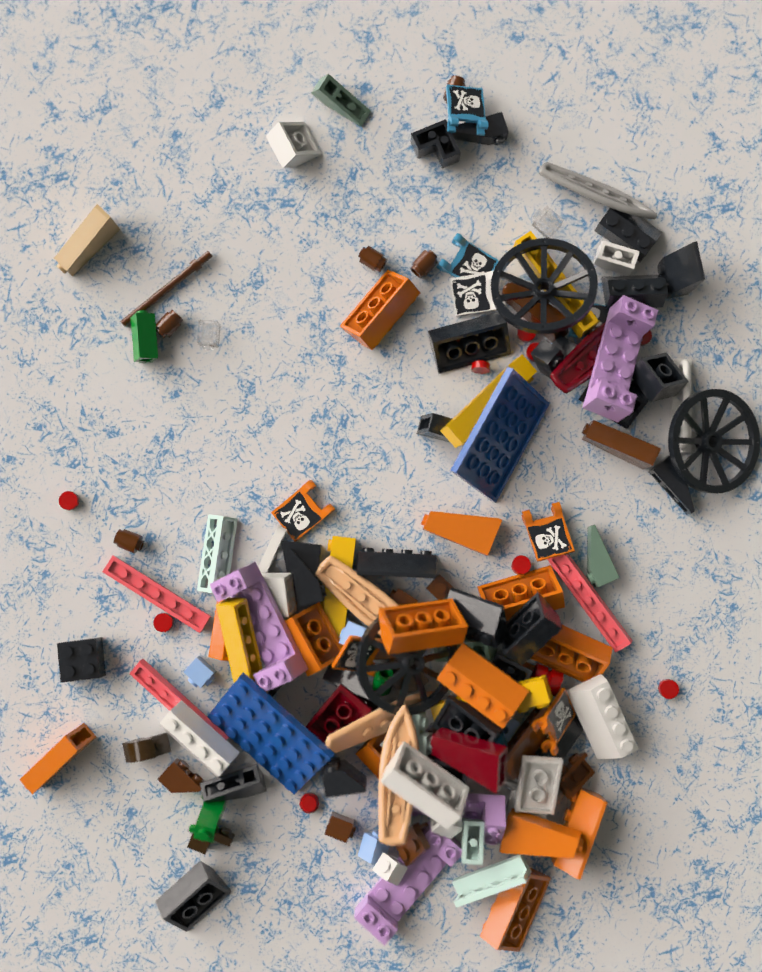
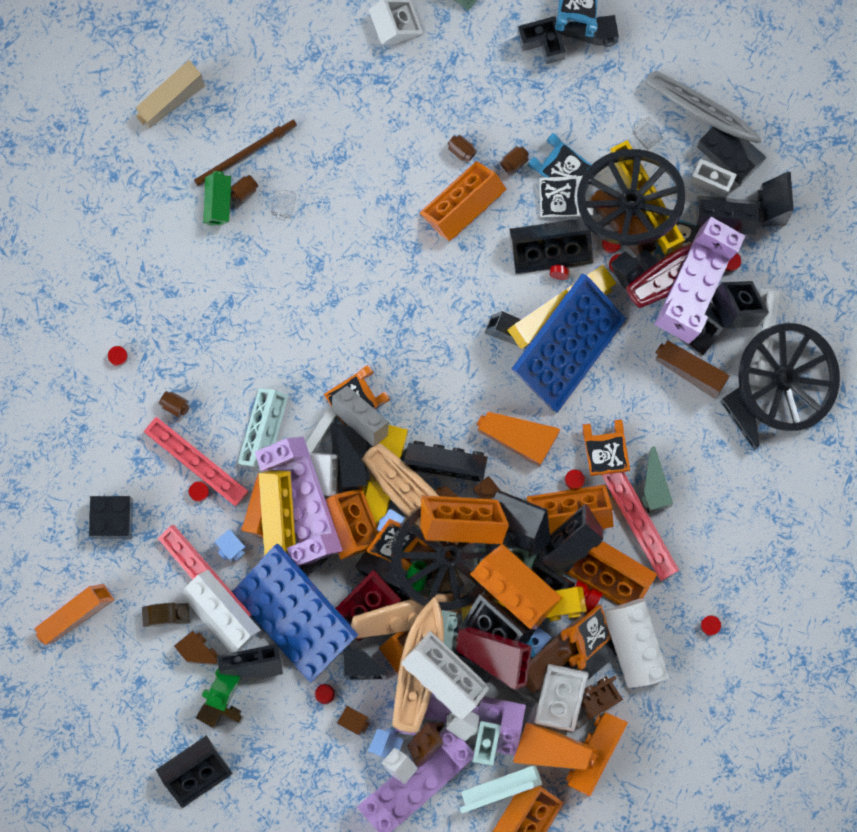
camera: 10 degrees right, 5 degrees down
(308, 532) = (360, 416): none -> light grey brick

